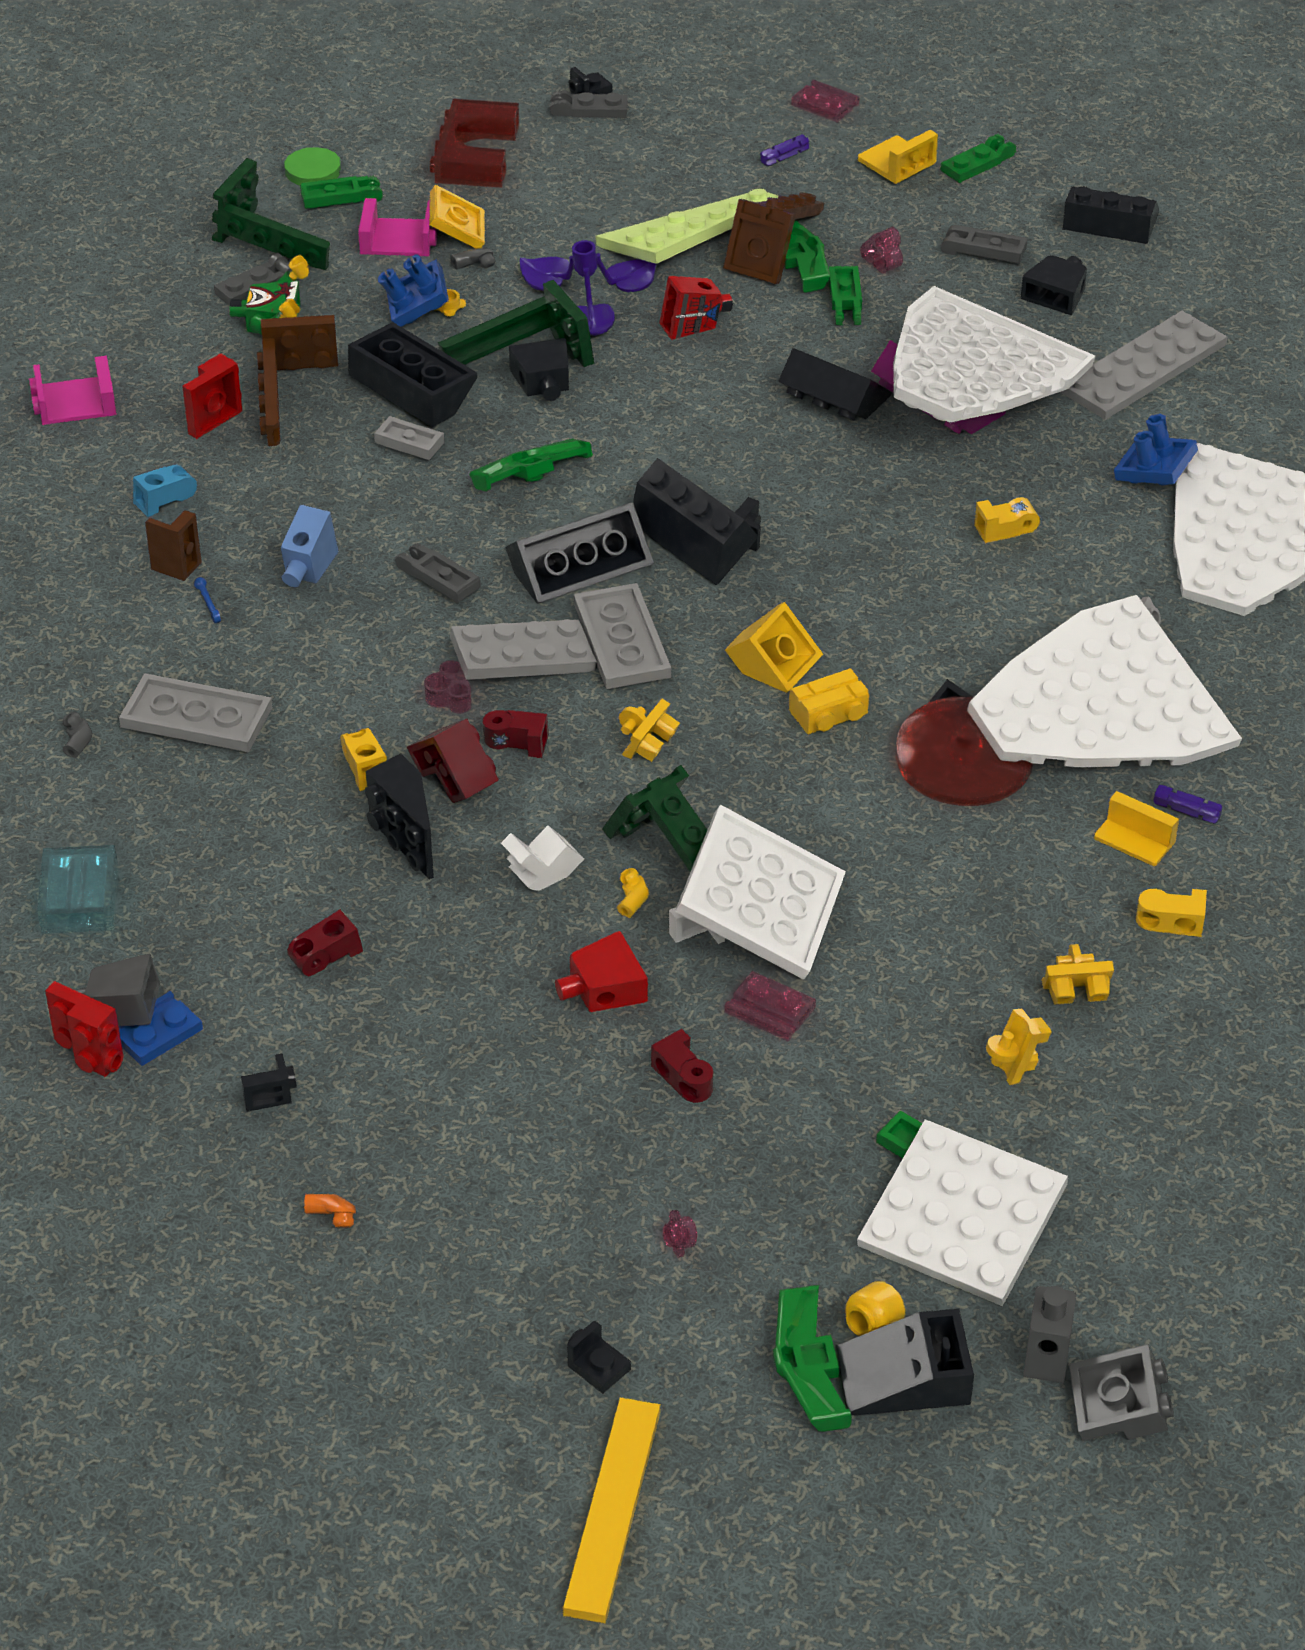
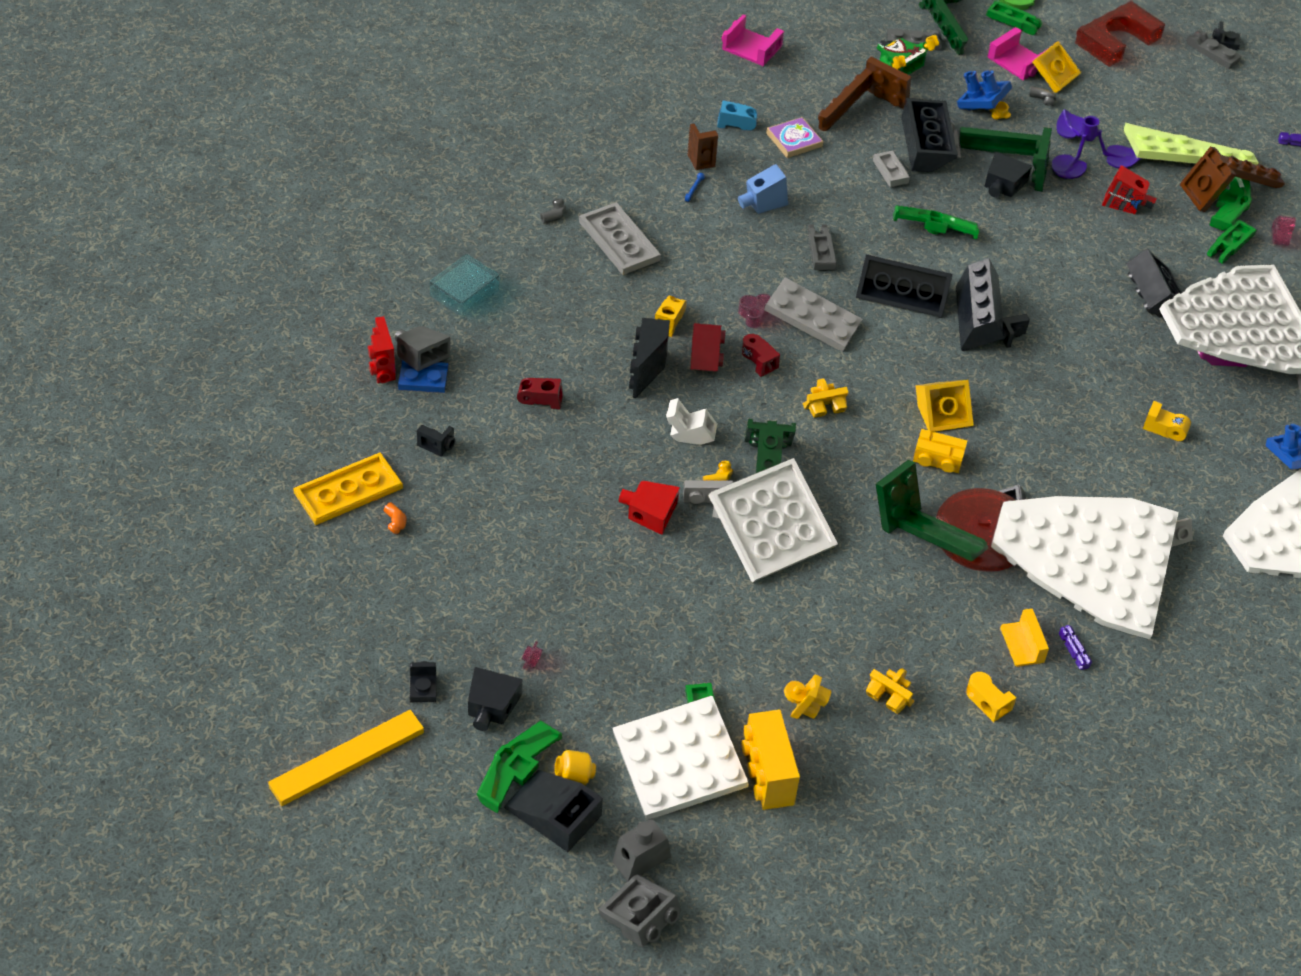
camera: 40 degrees right, 5 degrees up
(212, 395) = (810, 83): red plate -> none
(228, 1220) = (348, 488): none -> yellow tile
(255, 471) = (794, 137): none -> tile
(622, 636) = (874, 342): light grey plate -> none
(647, 915) = (698, 490): none -> light grey plate
(681, 1068) = (632, 585): dark red leg -> none
(693, 1310) = (492, 697): none -> black torso
(770, 1006) = (717, 582): clear pink plate -> none
(913, 787) = (901, 507): none -> dark green bracket
(1064, 1134) = (770, 760): none -> yellow brick

